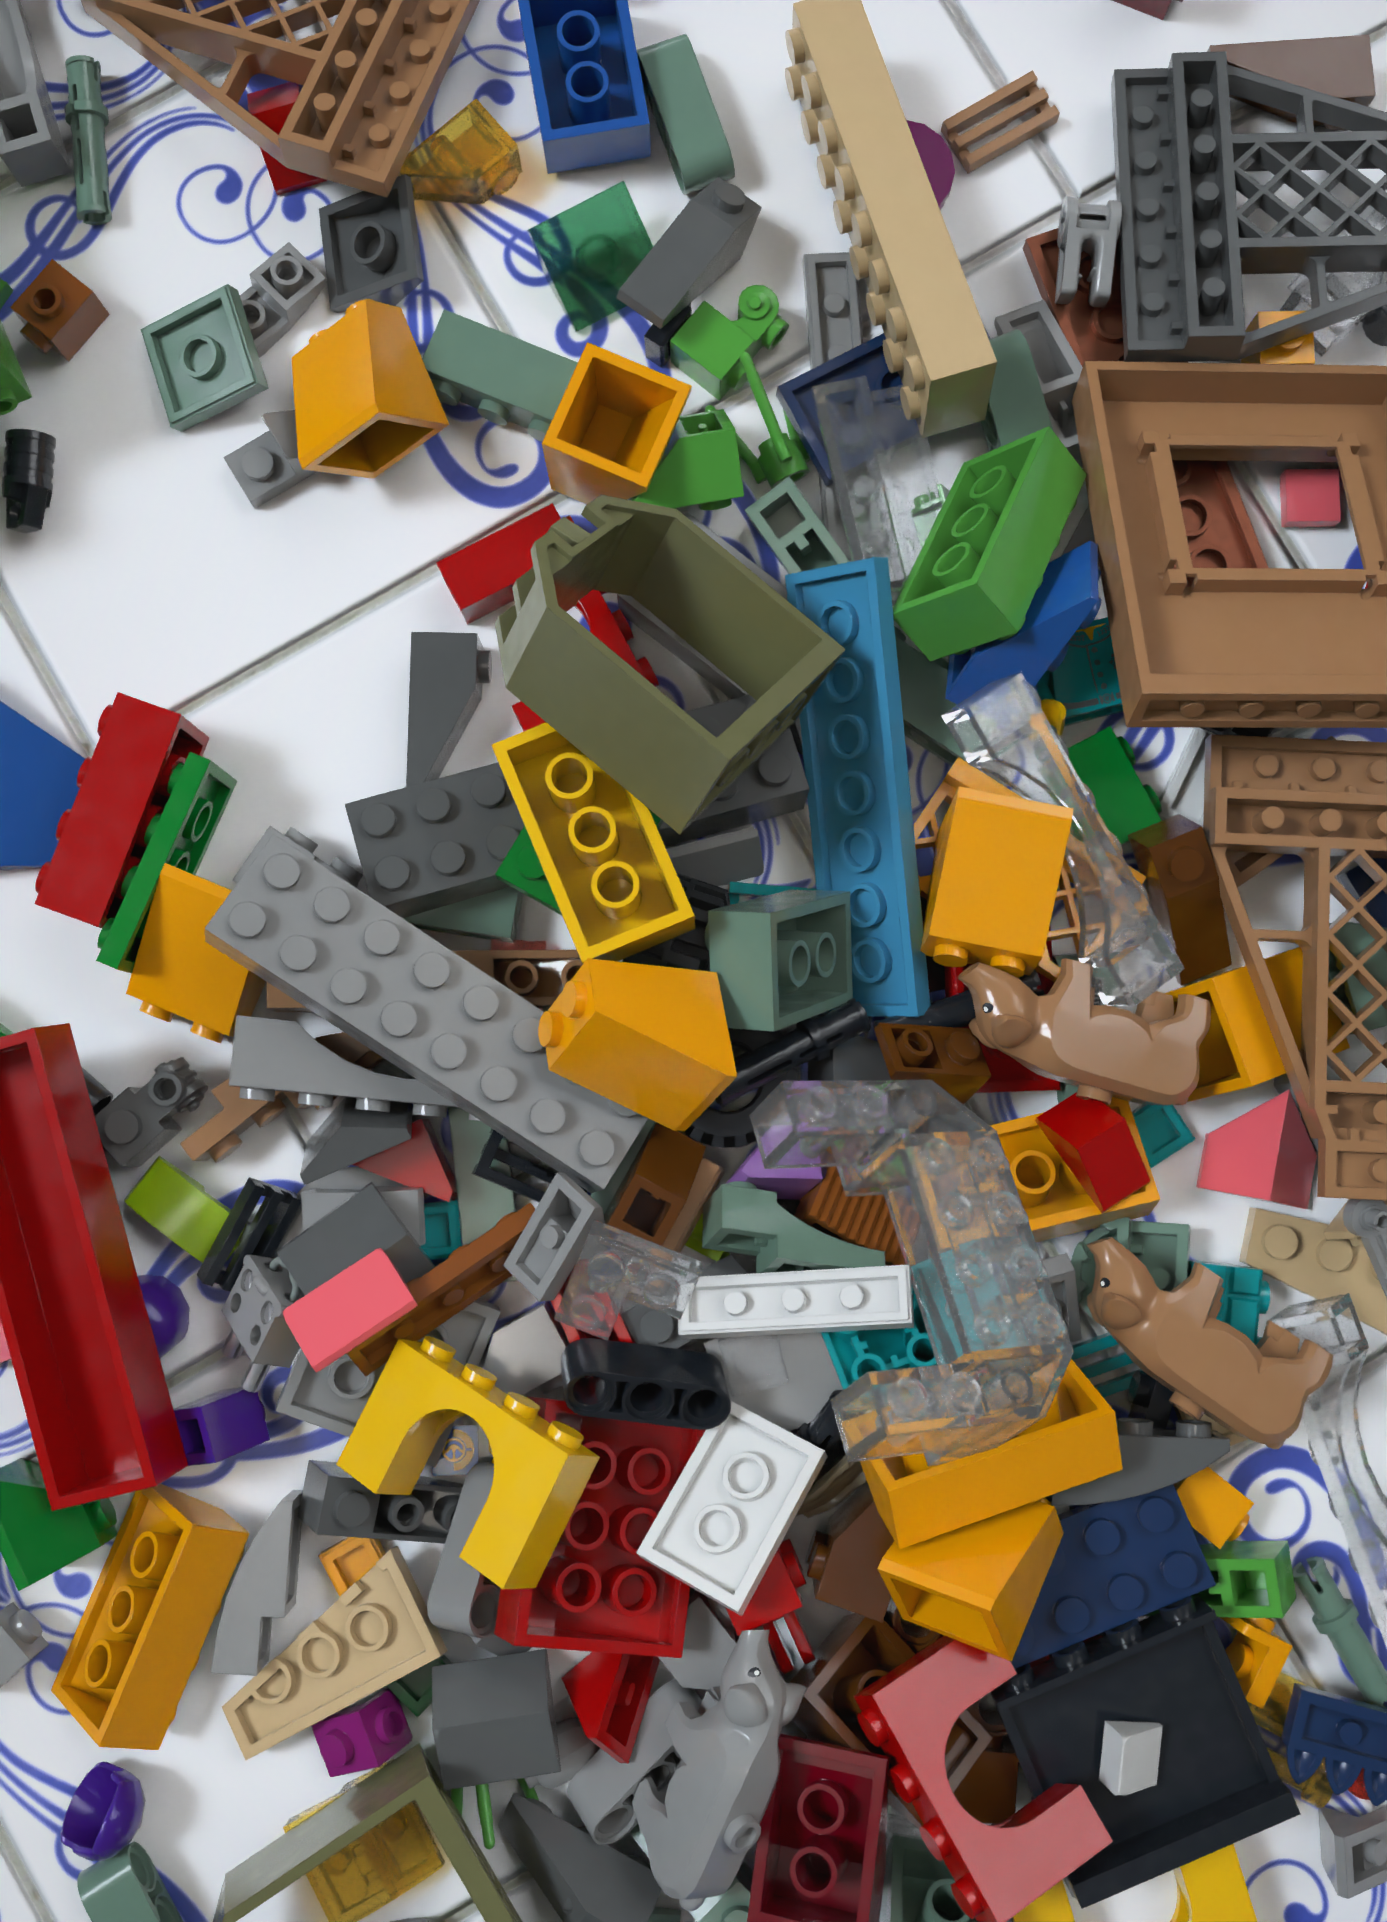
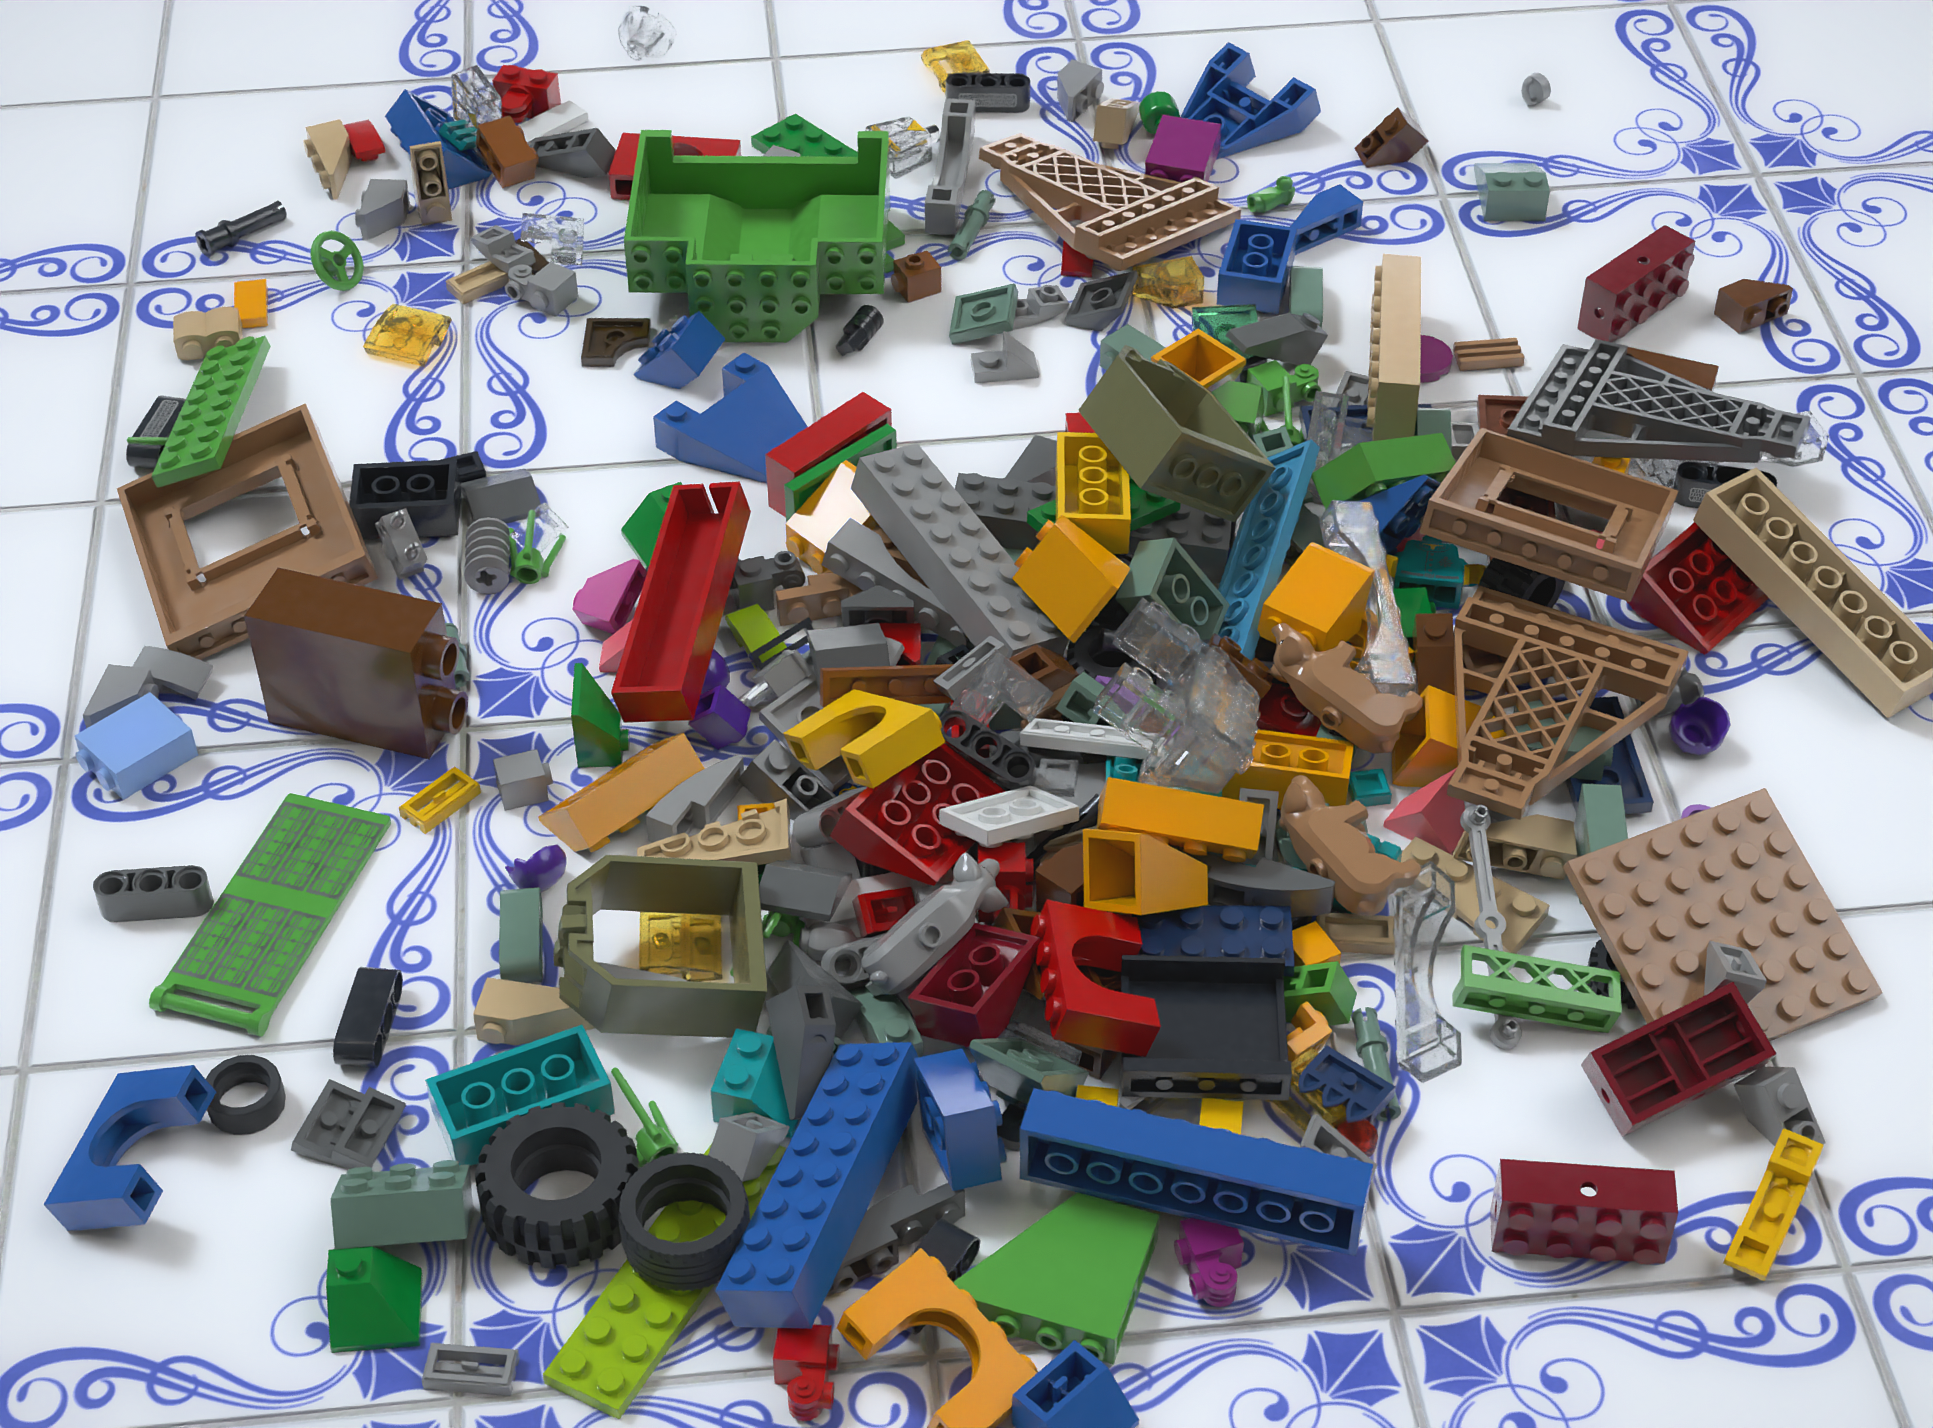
camera: 25 degrees right, 40 degrees down
(349, 1309) = (835, 654): coral slope -> none
(363, 394) = (1064, 342): light orange slope -> none
(1089, 230) = (1510, 394): light grey piece -> none
(1096, 1149) = (1320, 742): red slope -> none
(1130, 1756) = (1196, 1024): white slope -> none

